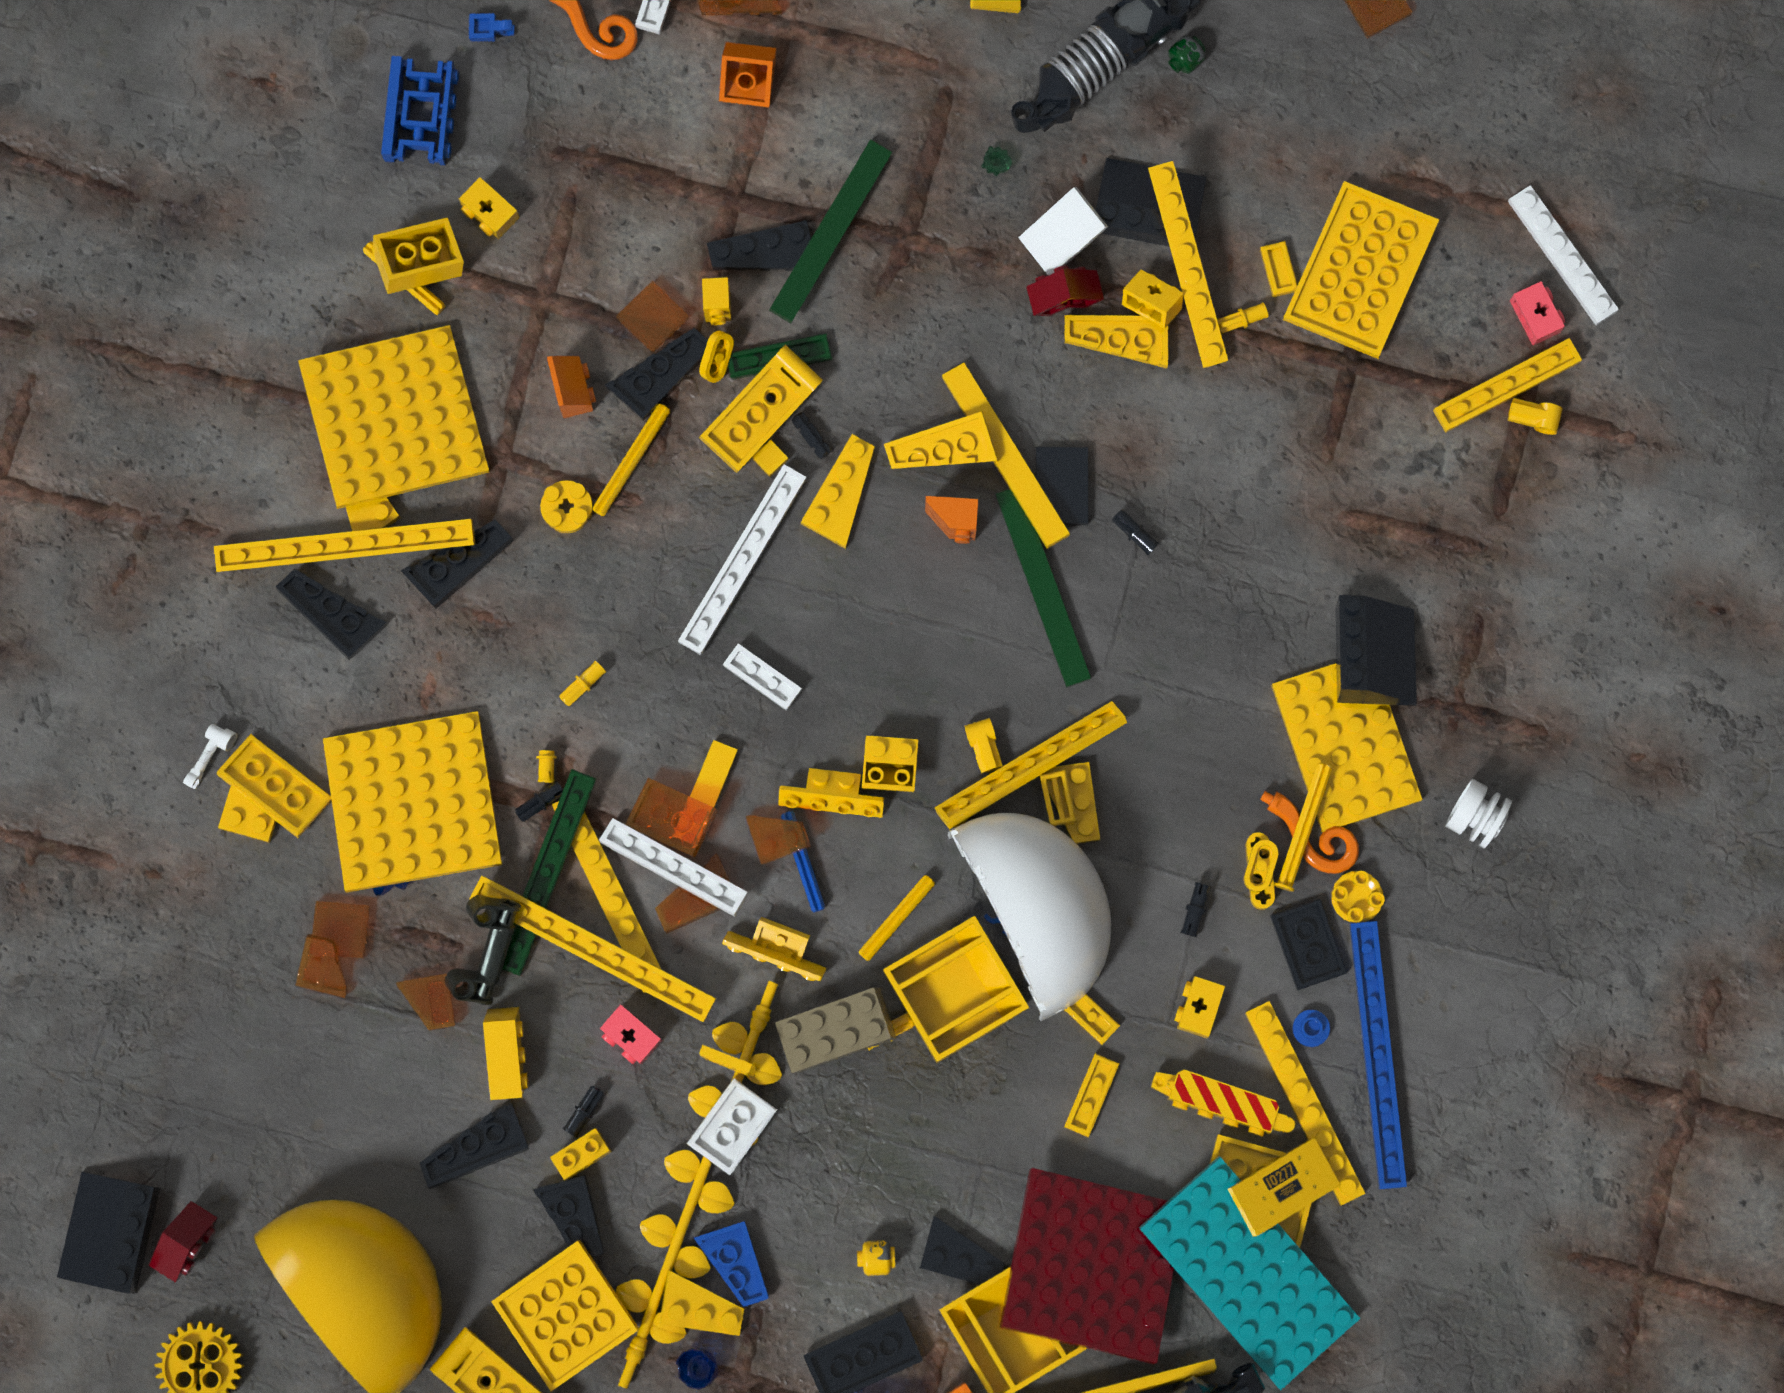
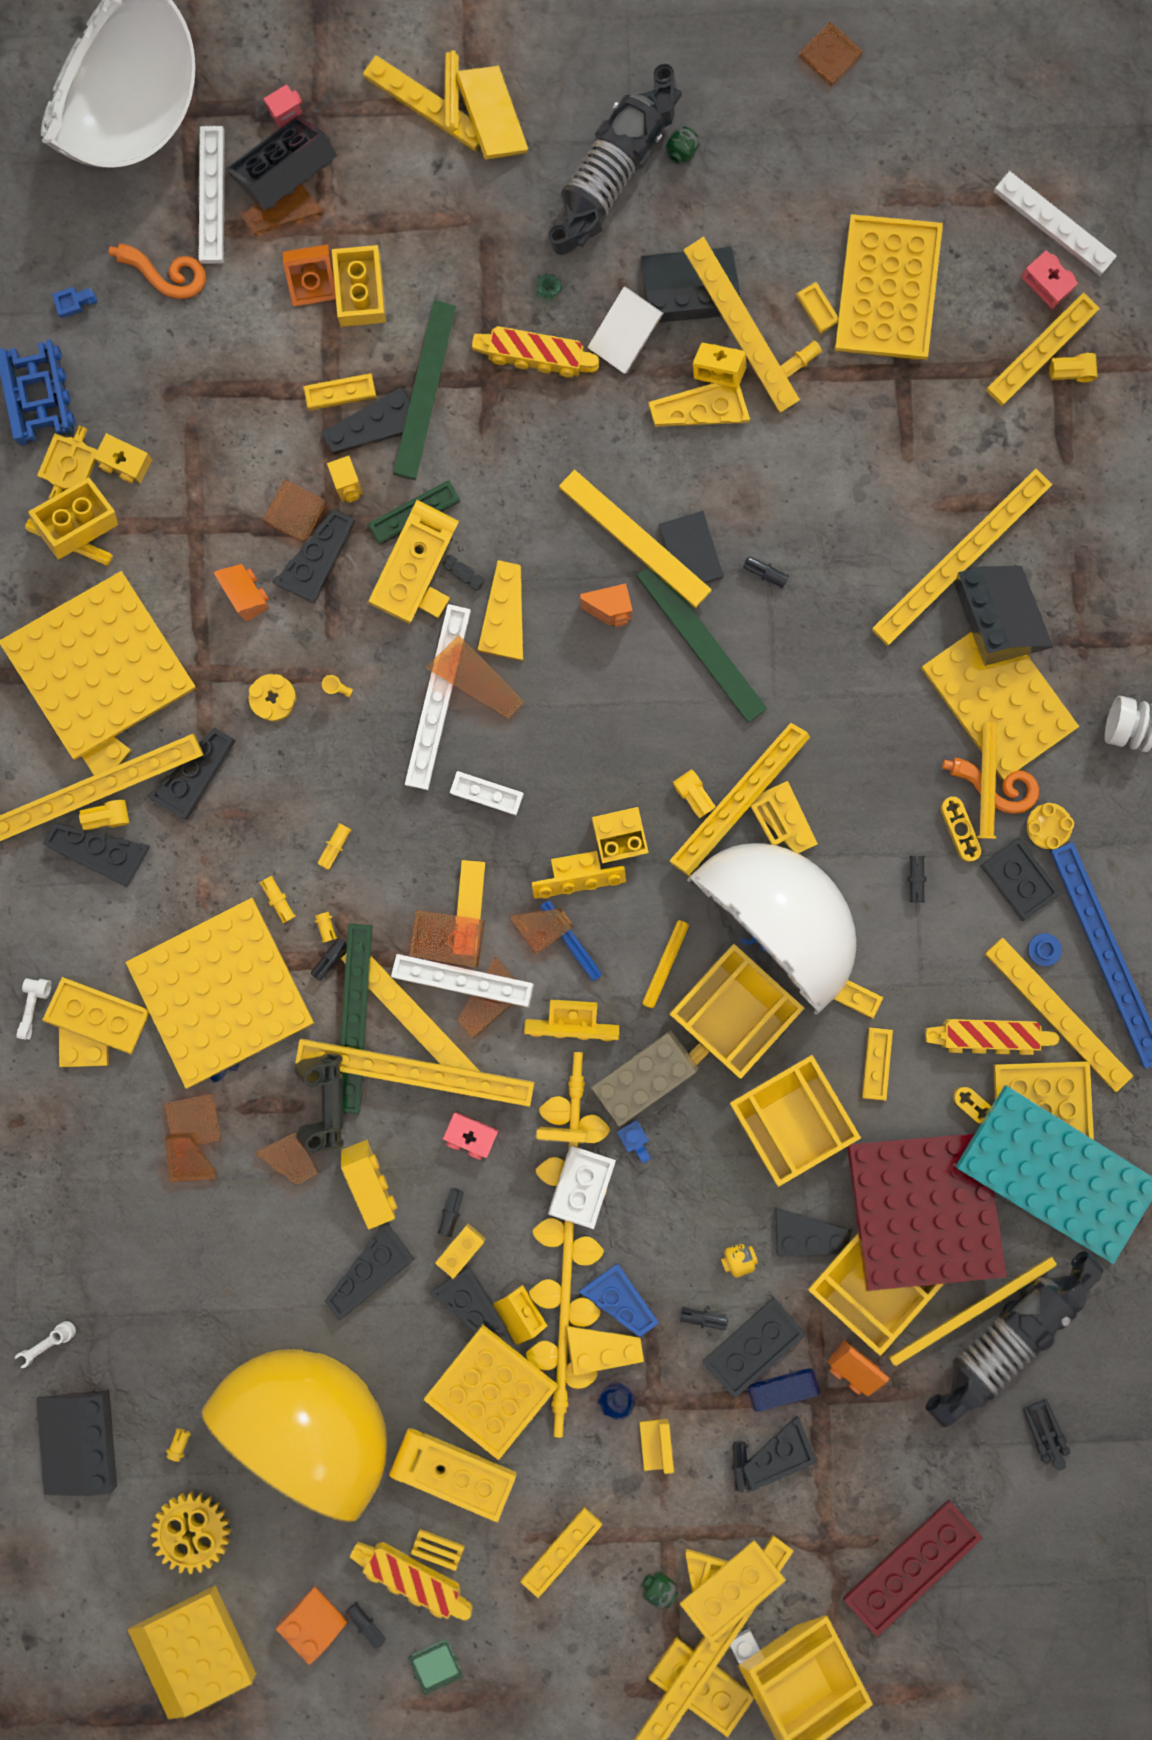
camera: 20 degrees left, 5 degrees up
(137, 1112) = (62, 1333): none -> white brick
(183, 1241) = (141, 1432): dark red brick -> none
(215, 1268) = (178, 1445): none -> yellow pin
(358, 578) = (110, 814): none -> yellow piece
(429, 194) = (67, 461): none -> yellow plate
(504, 721) = (277, 899): none -> yellow pin
(622, 1244) = (520, 1315): none -> yellow panel
(631, 459) = (315, 640): yellow axle -> none
(634, 511) = (332, 685): none -> yellow piece
(716, 356) = (360, 528): yellow plate -> none
(740, 206) = (339, 392): none -> yellow tile
(787, 548) = (470, 673): none -> clear orange wing
(795, 102) = (359, 286): none -> yellow brick
(803, 1094) = (634, 1138): none -> blue plate
(818, 1310) = (704, 1318): none -> black axle
(947, 444) = (584, 543): yellow wing -> none
(961, 225) = (535, 351): none -> yellow hinge
(981, 1124) = (794, 1120): none -> yellow slope
(1064, 290) = (642, 379): dark red brick -> none
(1173, 1172) = (967, 1108): none -> yellow beam
(1210, 995) = (952, 949): yellow brick -> none
(1260, 866) = (962, 825): yellow plate -> none
(1283, 1187) = (1067, 1094): yellow tile -> none
(1351, 580) = (961, 557): none -> yellow plate

